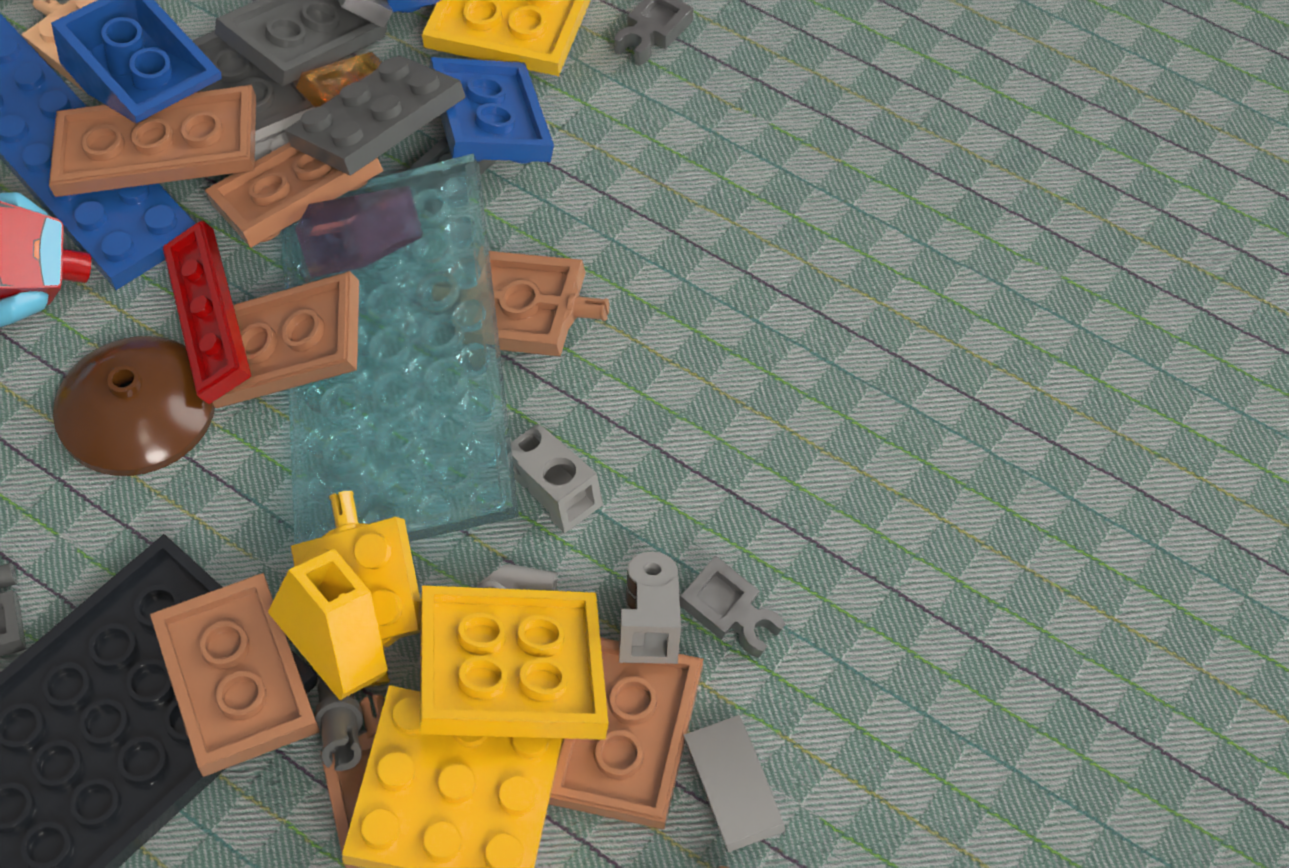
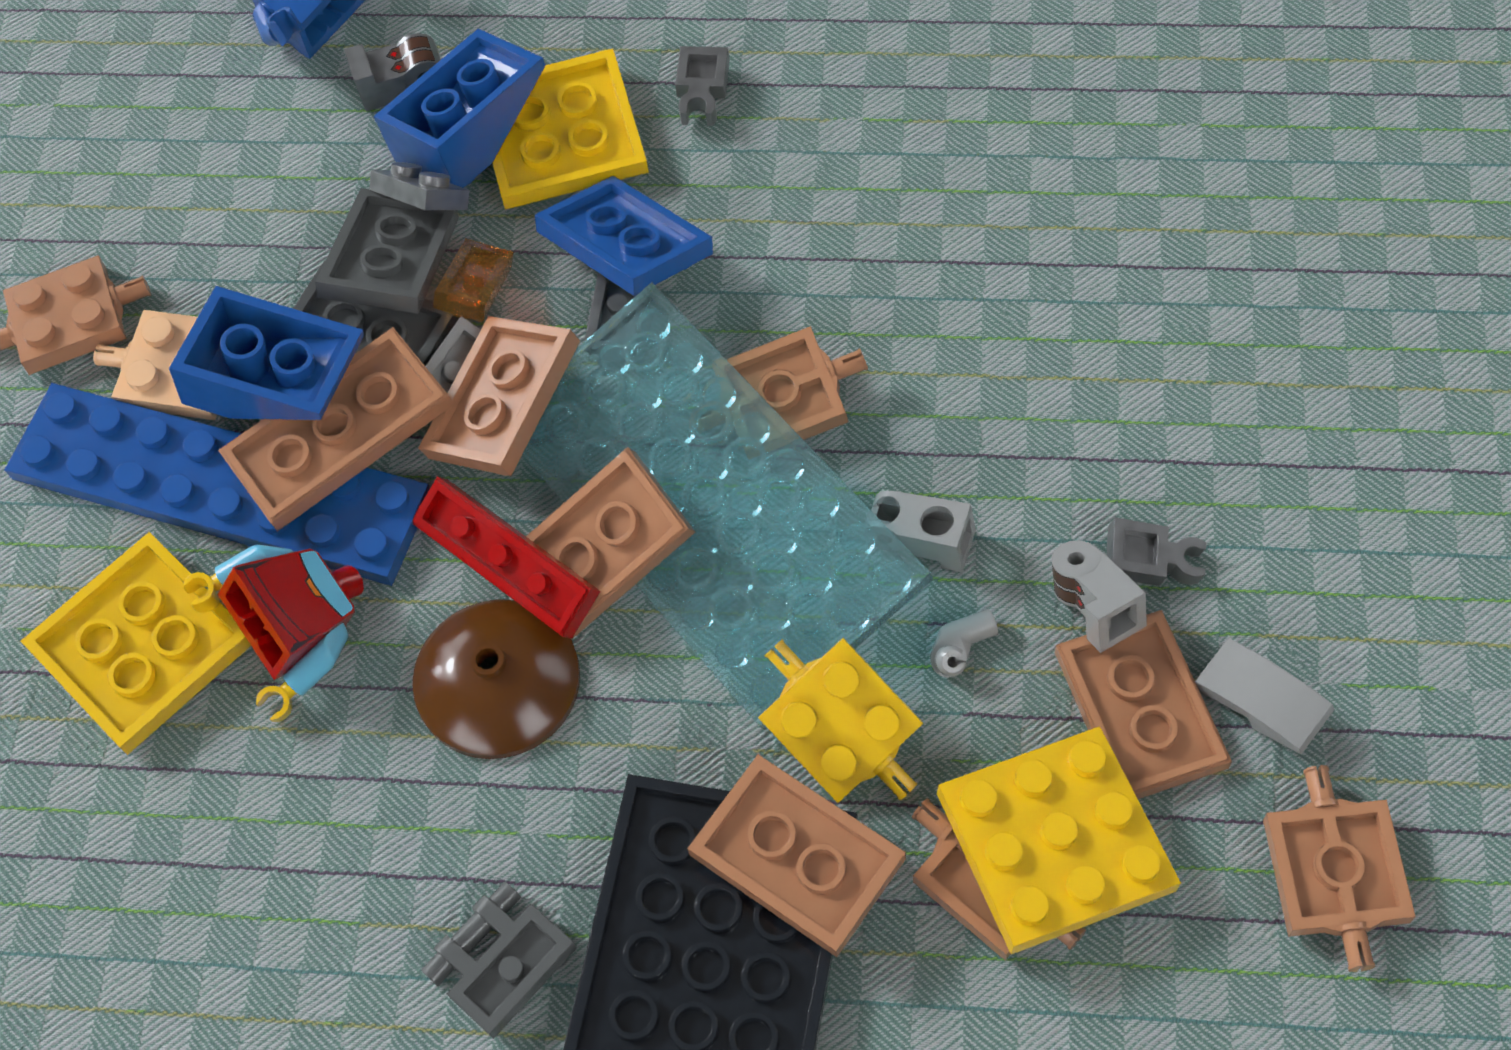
camera: 25 degrees left, 5 degrees up
(331, 622) = (859, 760): yellow slope -> none
(339, 728) = (914, 837): dark grey pin -> none
(357, 230) = (607, 406): clear purple slope -> none
(374, 114) = (535, 293): dark grey plate -> none
(511, 663) = (1027, 705): yellow plate -> none

